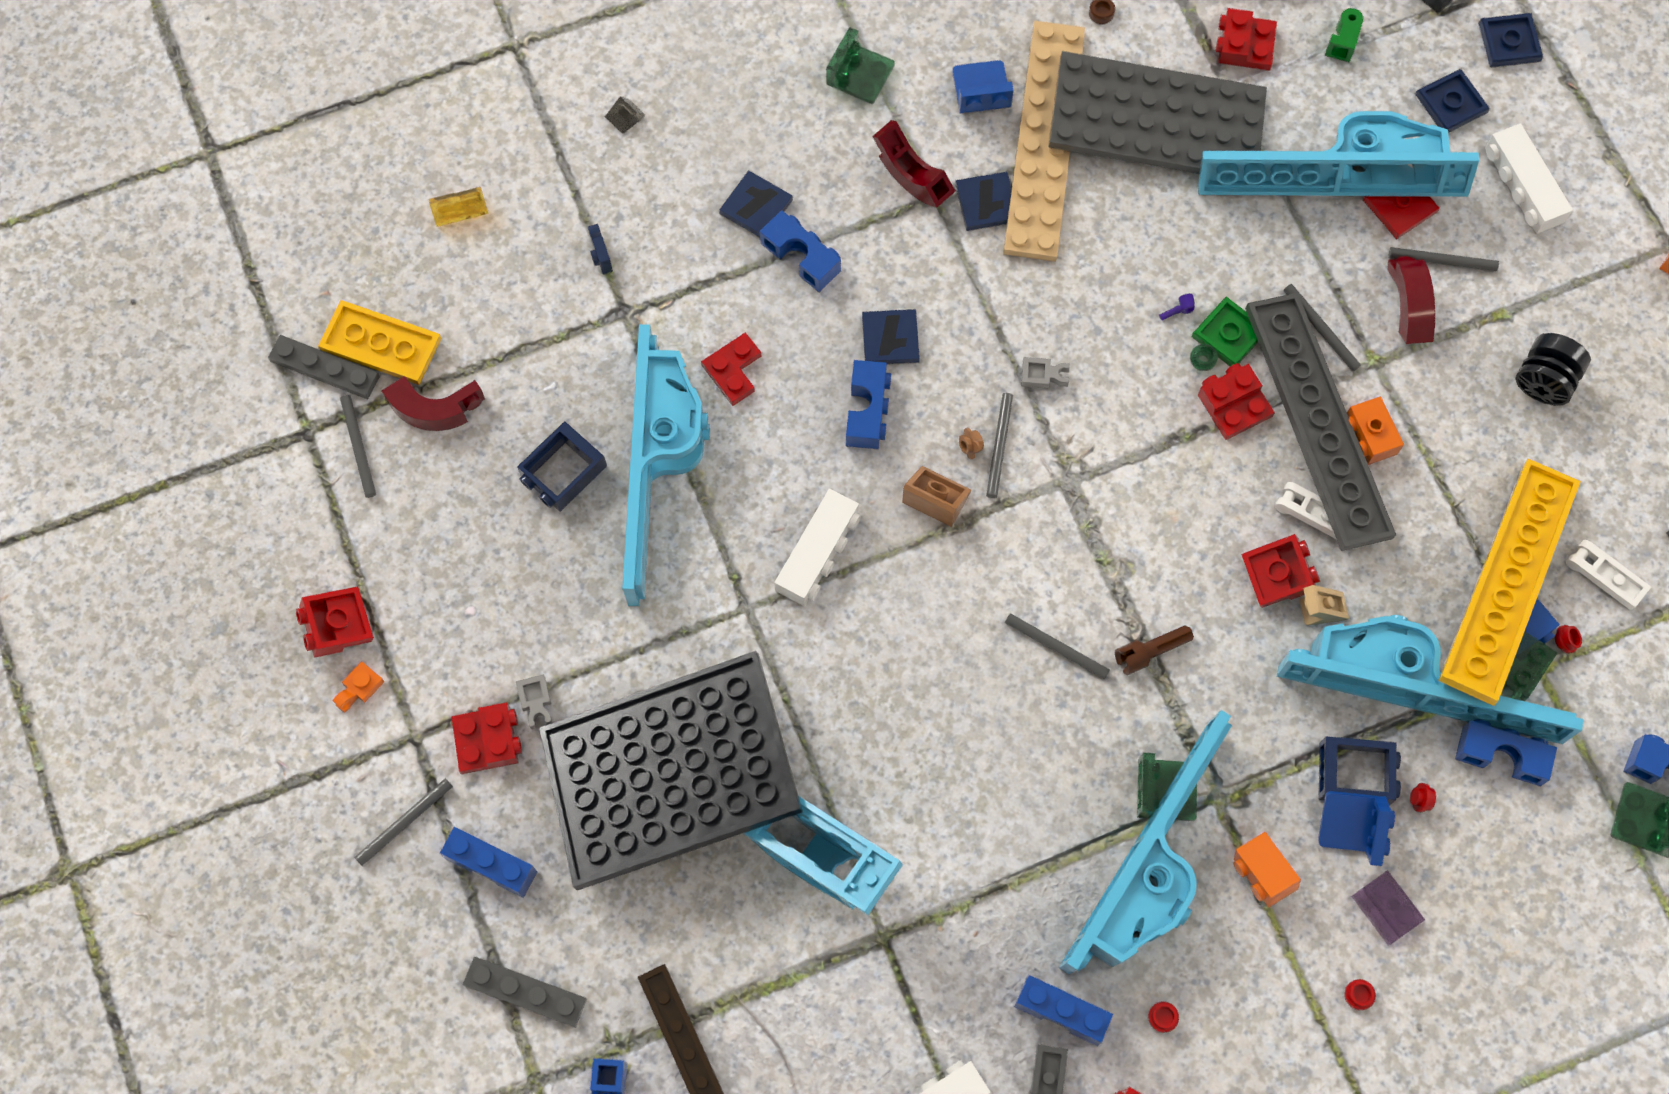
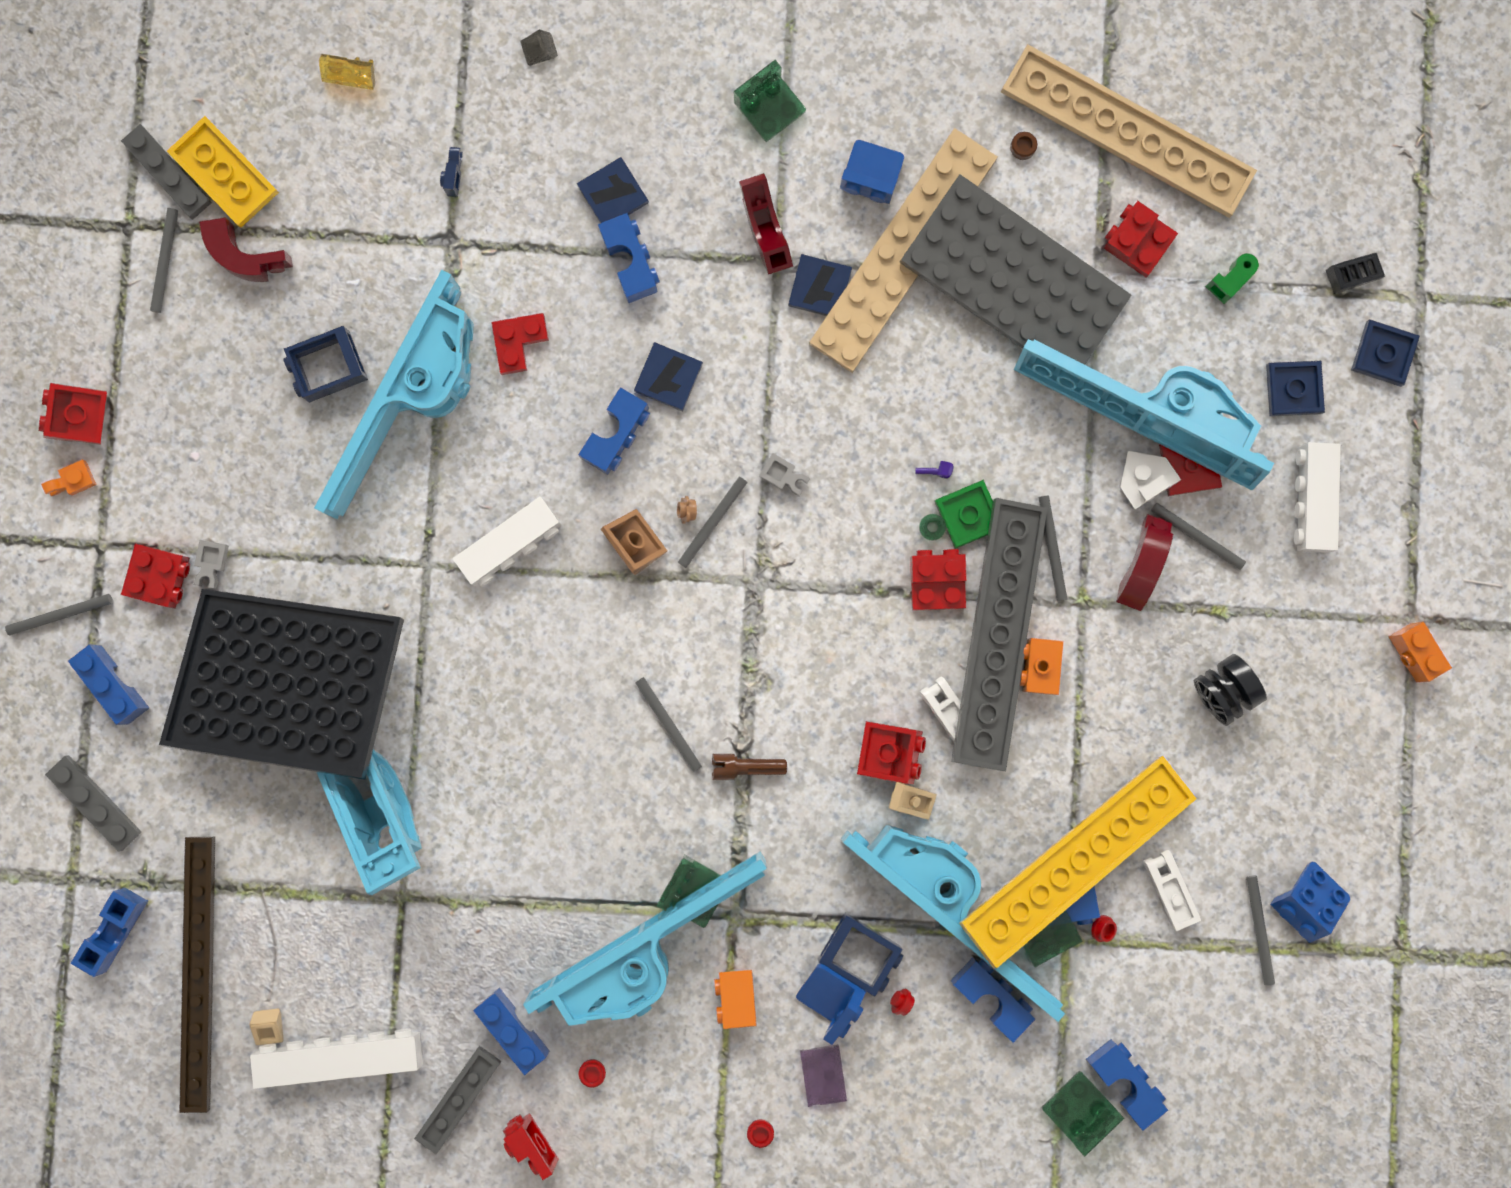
camera: 25 degrees right, 15 degrees up
(1369, 229) = (1146, 477): none -> white plate

